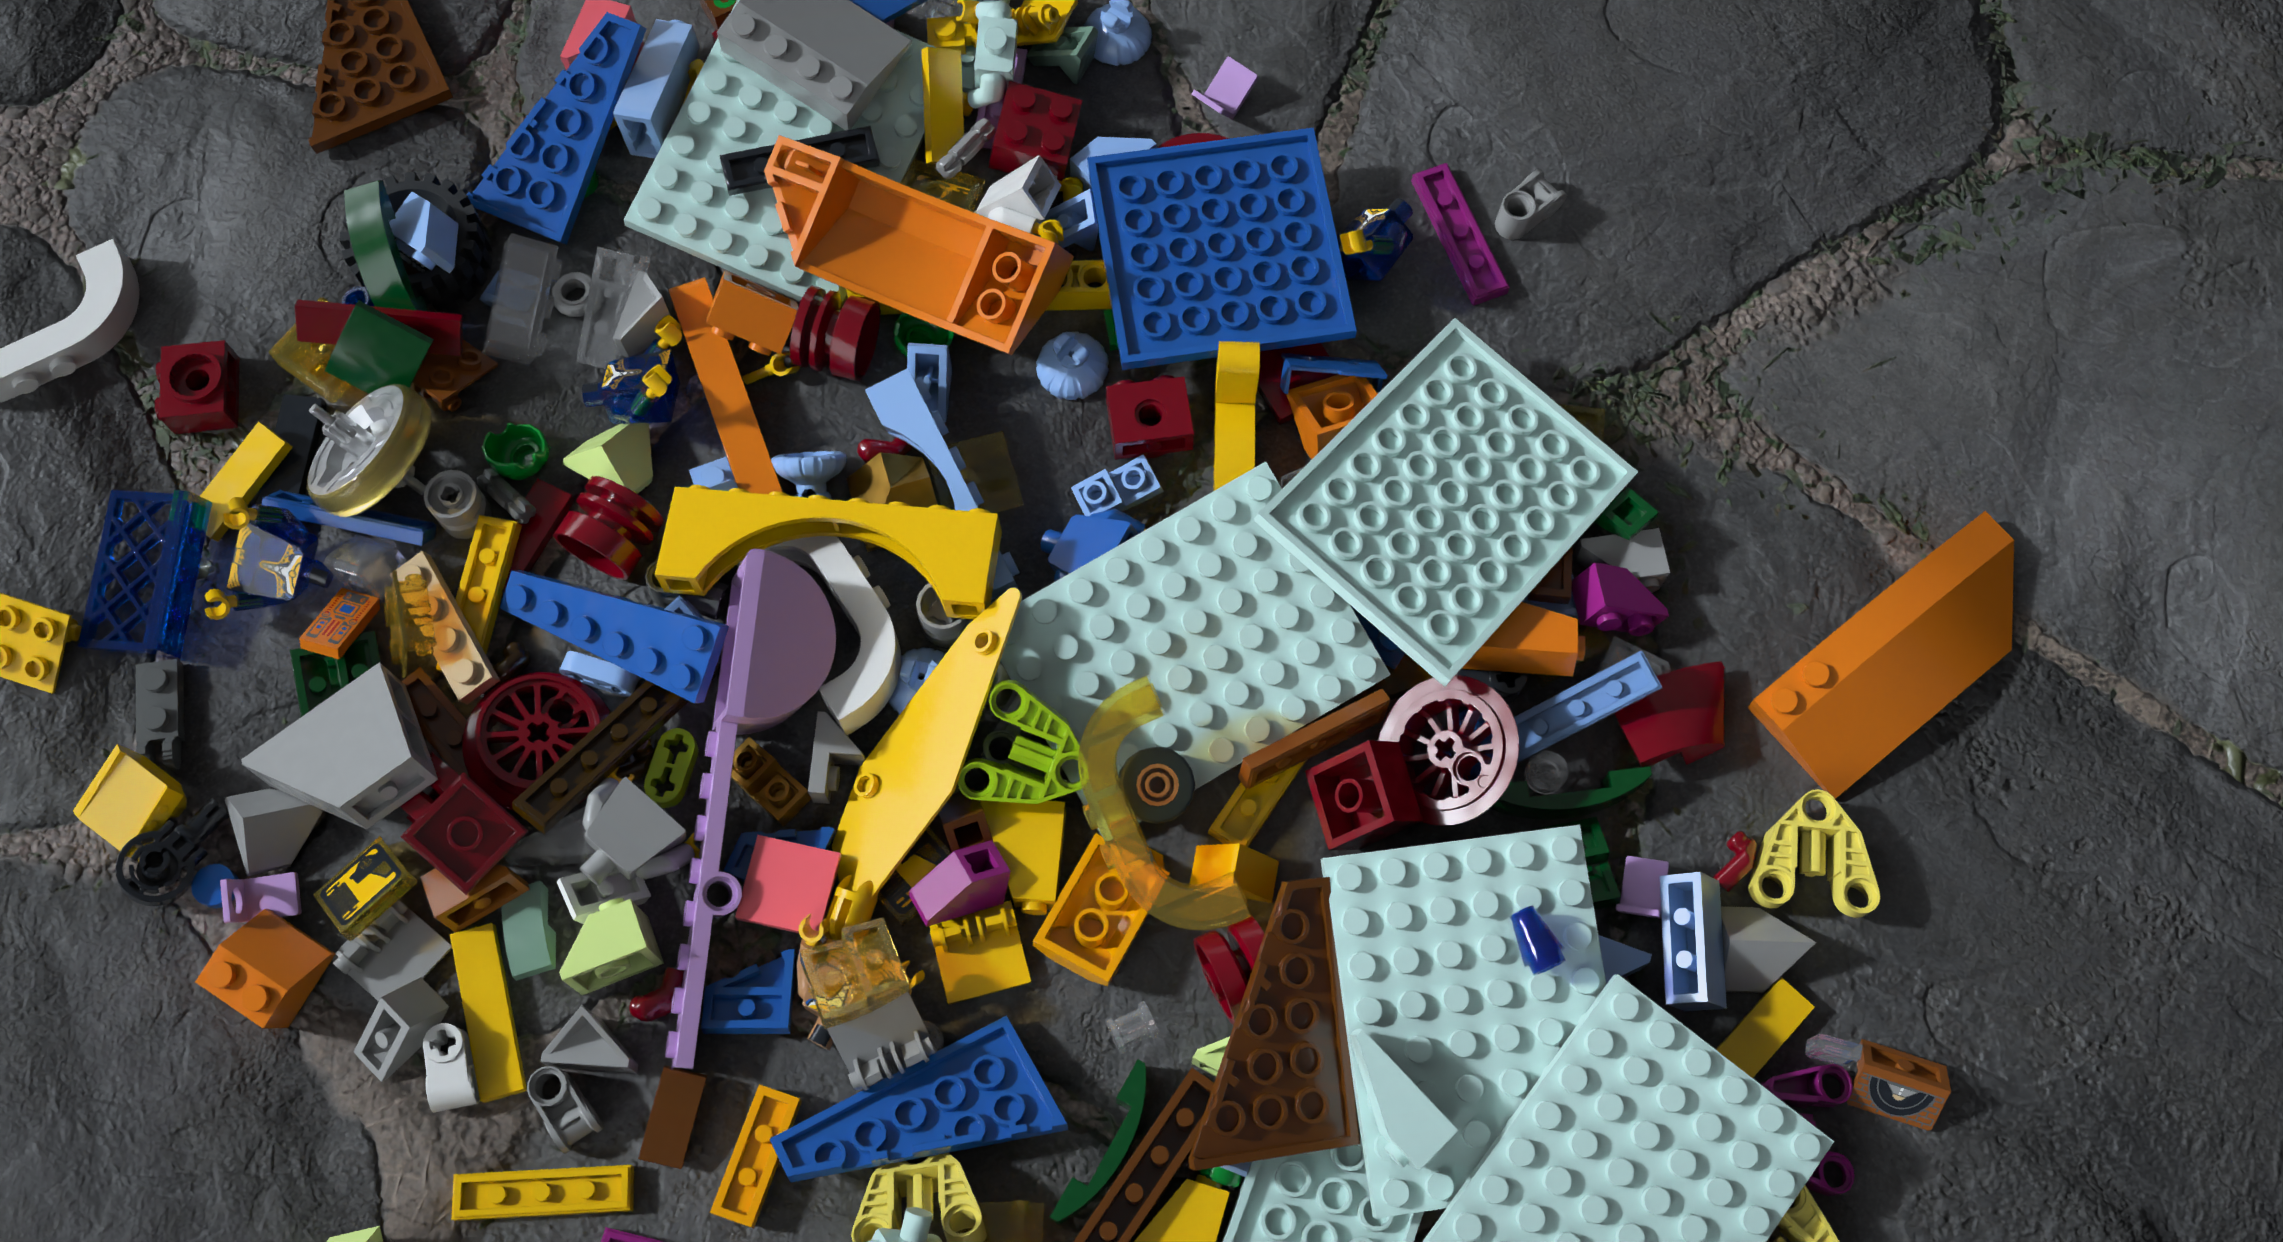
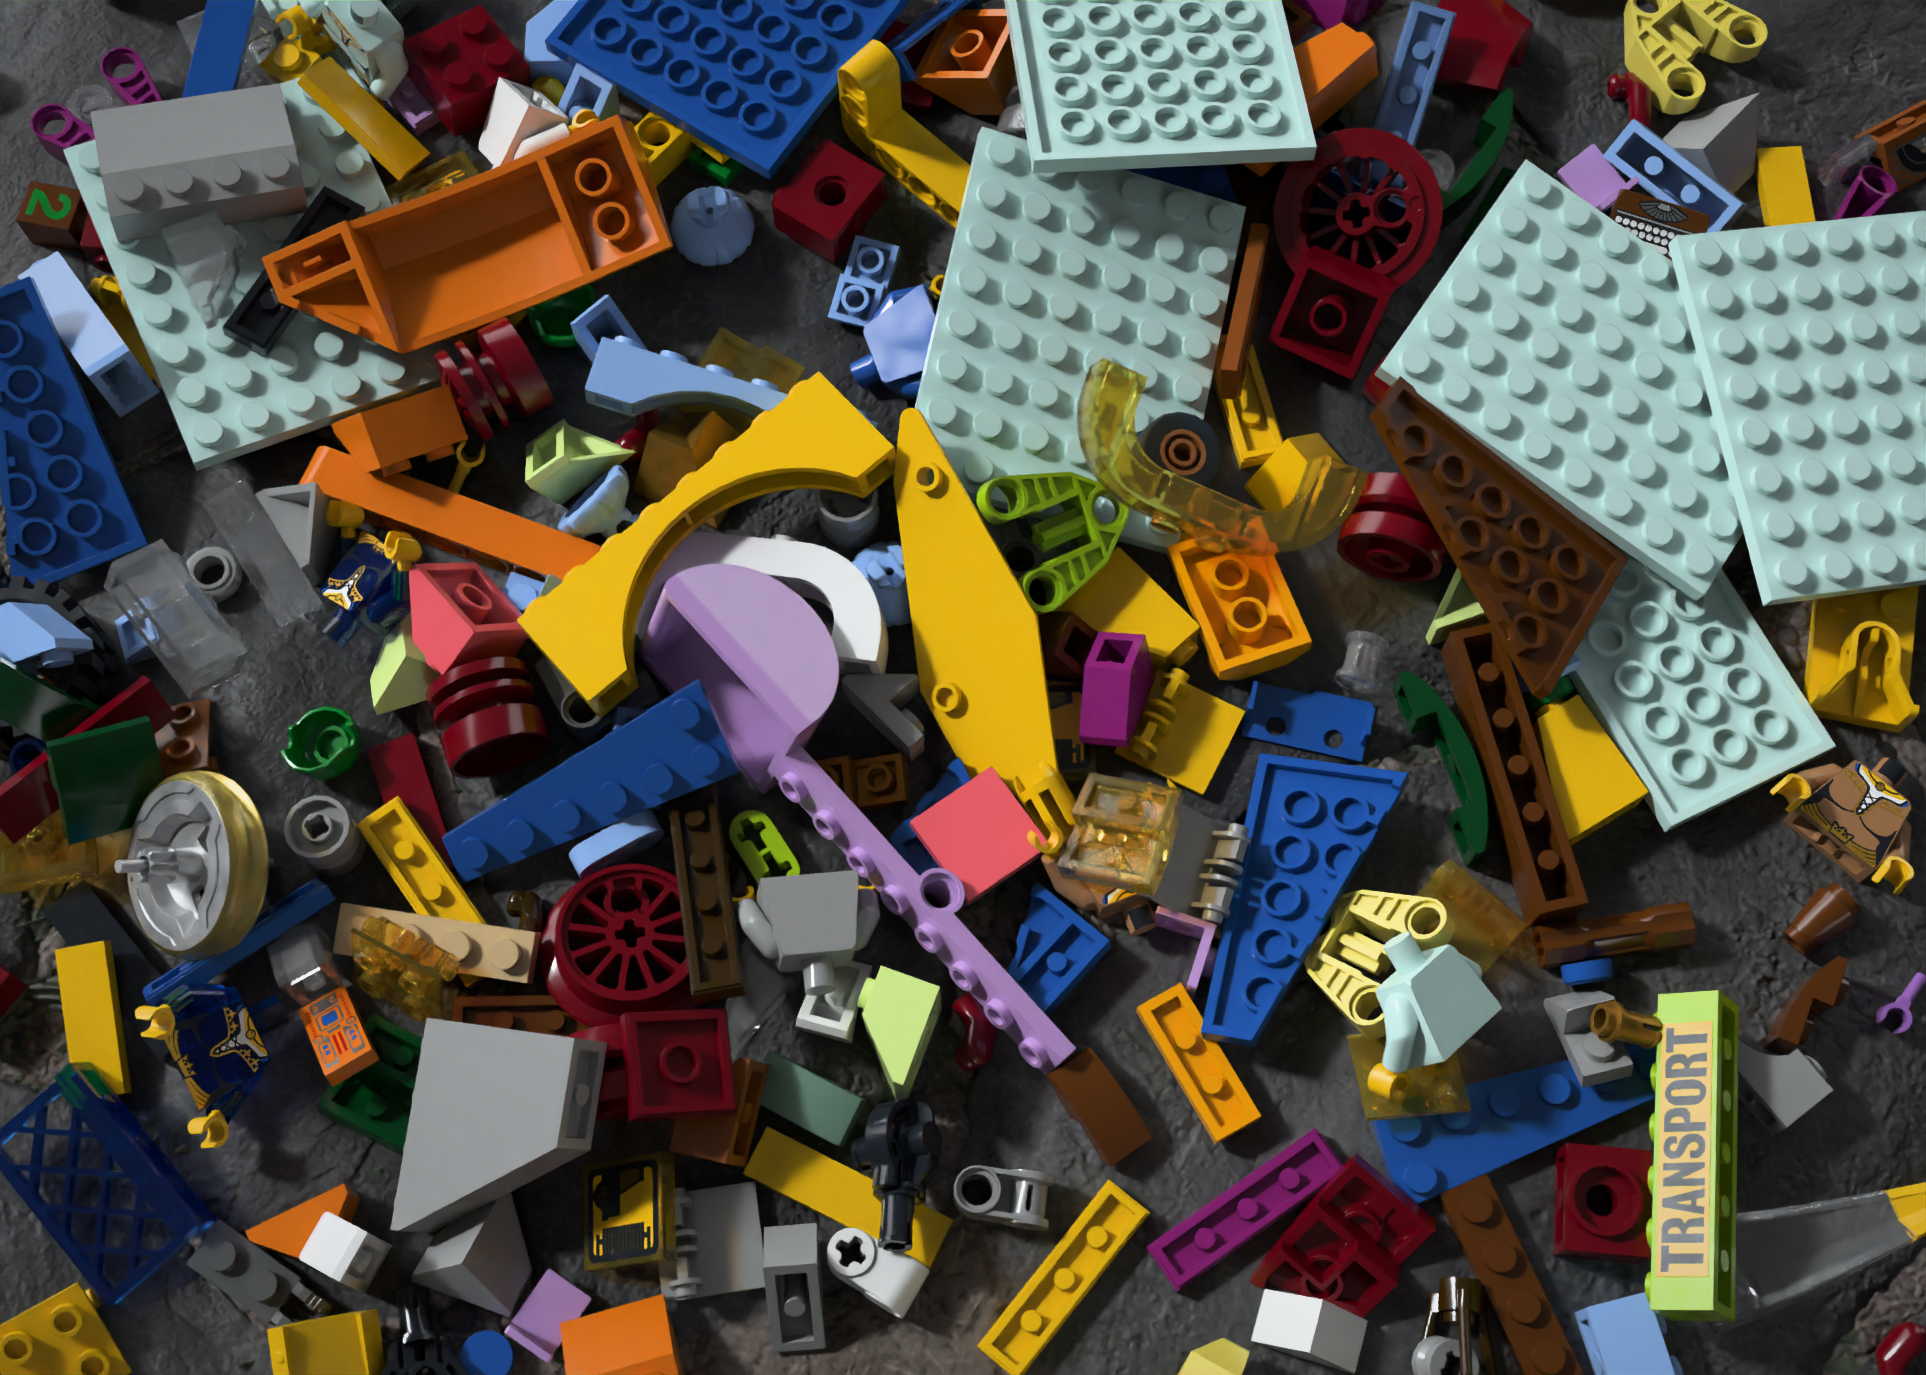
camera: 45 degrees left, 0 degrees up
(203, 749) = (344, 1252): none -> white slope
(209, 718) = (291, 1229): none -> orange slope
(506, 496) = (362, 787): dark grey axle -> none
(523, 1025) = (901, 1164): none -> black pin
(589, 1046) = (972, 1124): light grey slope -> none
(658, 453) = (461, 615): none -> coral slope
(749, 108) = (205, 261): none -> clear slope
(825, 423) = (568, 461): none -> yellowish green slope
(830, 1096) = (1196, 928): none -> lavender bracket
(965, 148) = (422, 136): light grey axle -> none
(1064, 1027) = (1308, 720): none -> blue piece
(1401, 1109) = (1640, 487): light aqua slope -> none
(1536, 941) = (1598, 268): clear blue cone -> none
(1631, 954) = (1656, 220): none -> slope

